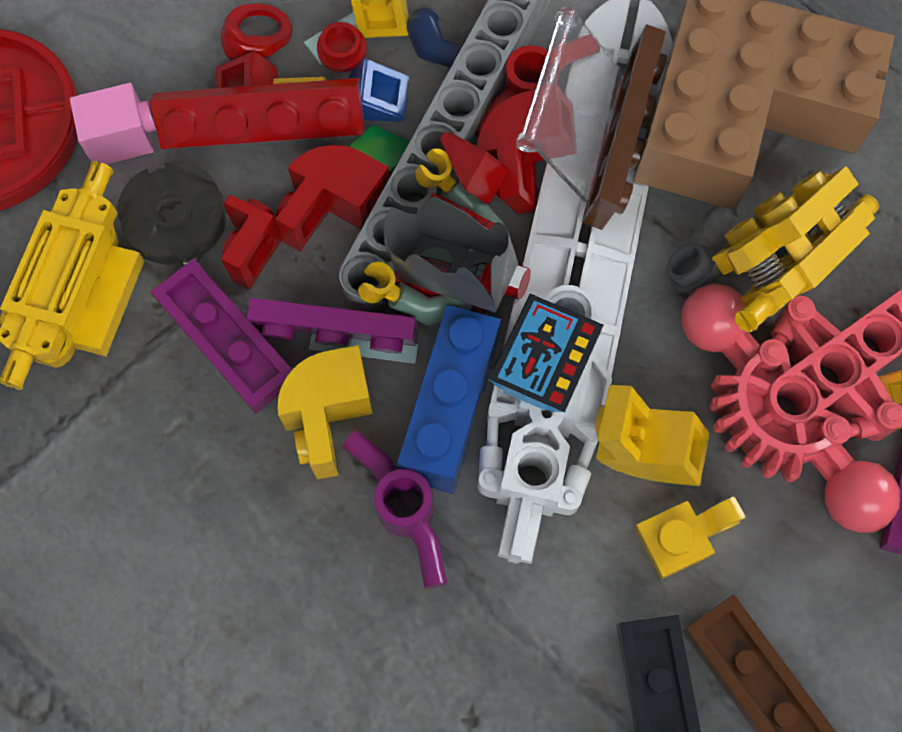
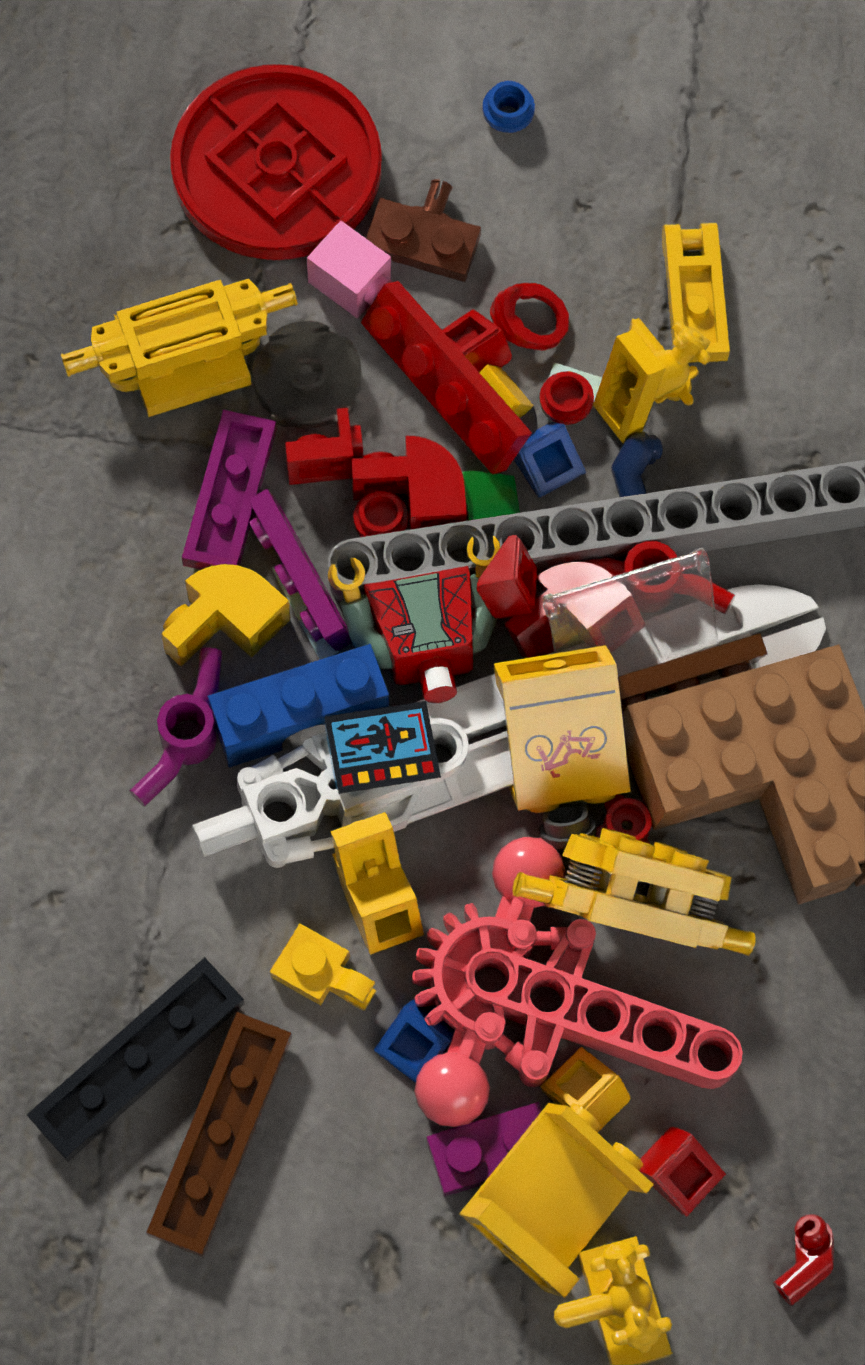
camera: 50 degrees right, 0 degrees up
(131, 57) = (425, 235): none -> copper plate
(332, 237) = (380, 514): none -> red plate
(456, 232) = (393, 570): dark grey piece -> none
(623, 203) = (564, 728): none -> yellow panel
(717, 213) = (627, 809): none -> red plate
(794, 503) = (412, 1042): none -> blue slope

